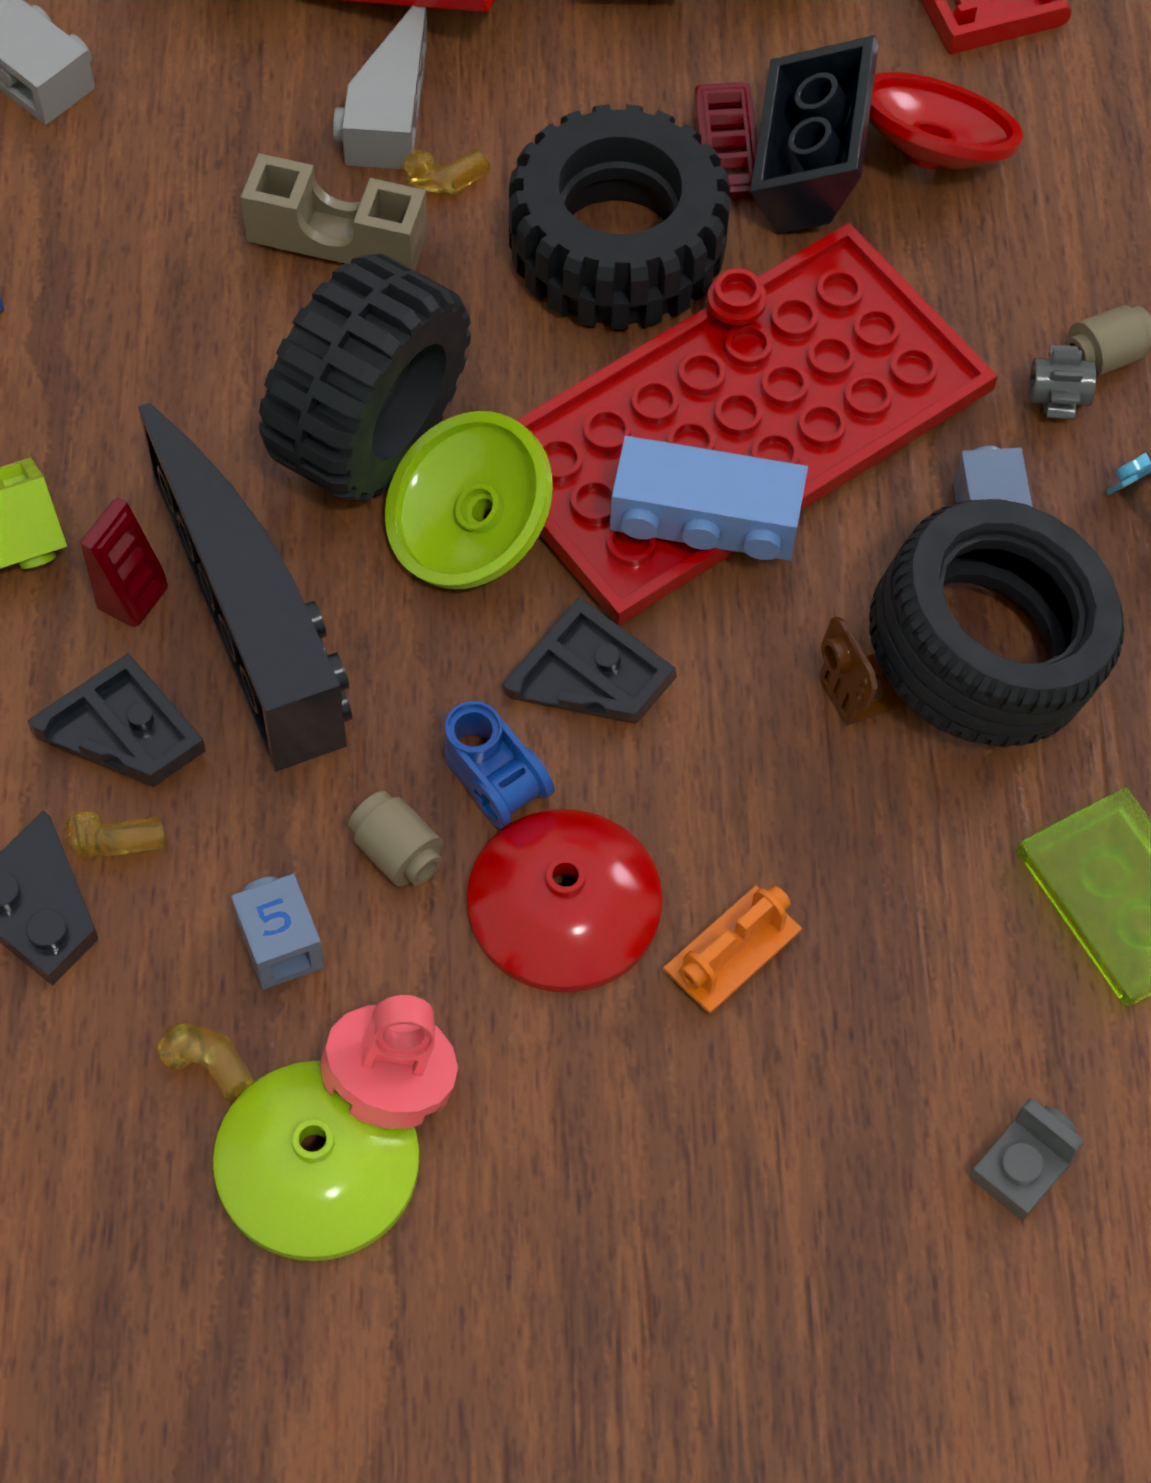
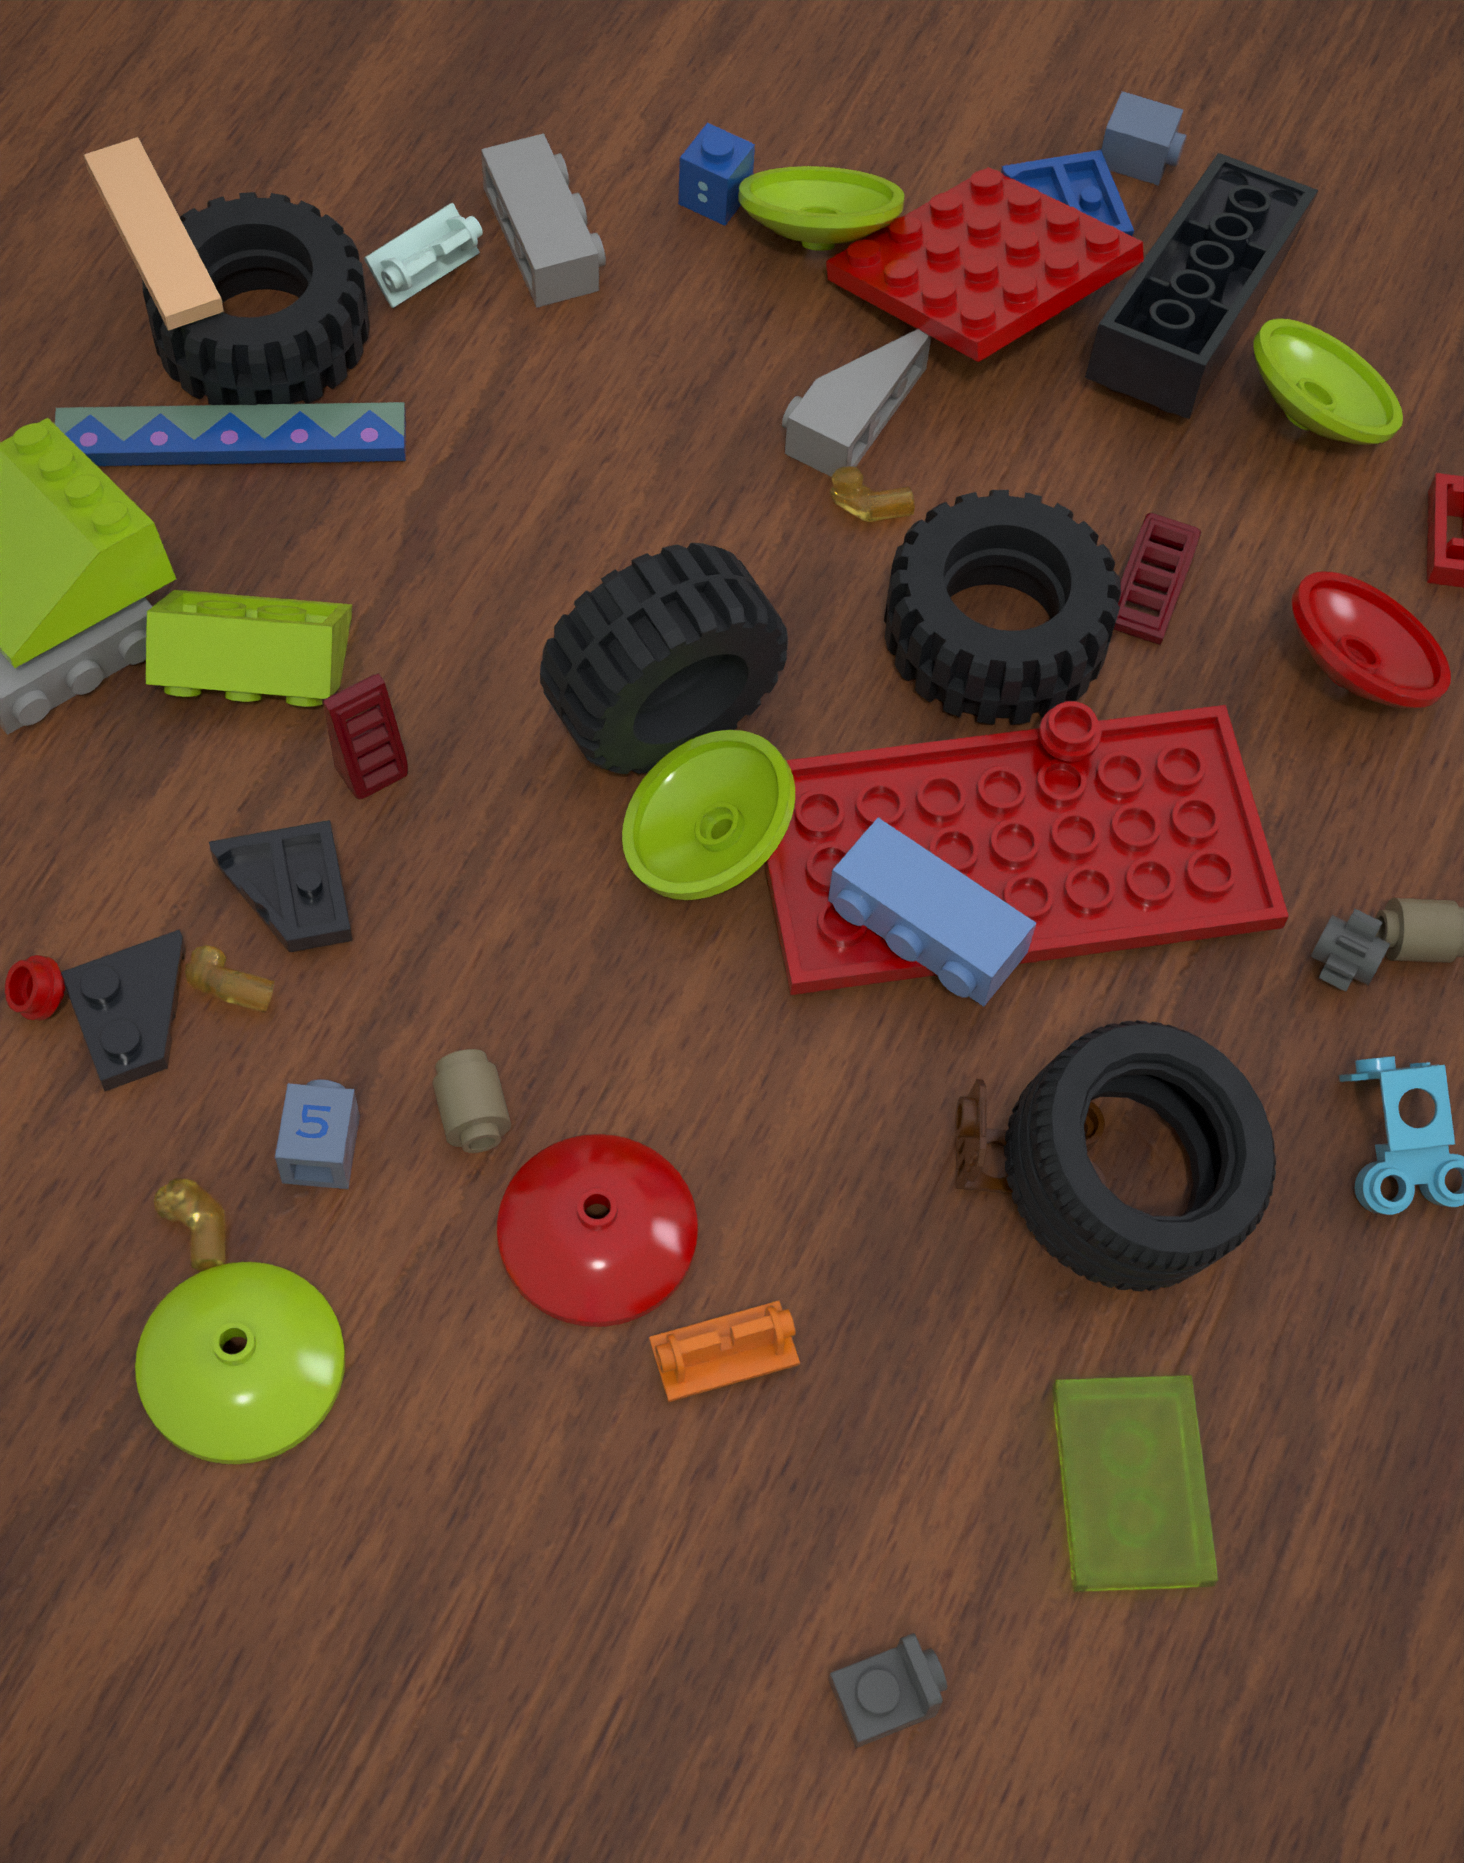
camera: 25 degrees right, 0 degrees up
(253, 602) = (453, 855): black slope -> none
(292, 213) = (701, 475): dark tan arch -> none
(390, 1062) = (345, 1307): coral tile -> none
(499, 773) = (598, 1080): blue piece -> none
(591, 668) = (739, 1023): black wing -> none
(813, 133) = (1229, 602): black slope -> none
(992, 475) = (1225, 1016): sand blue brick -> none

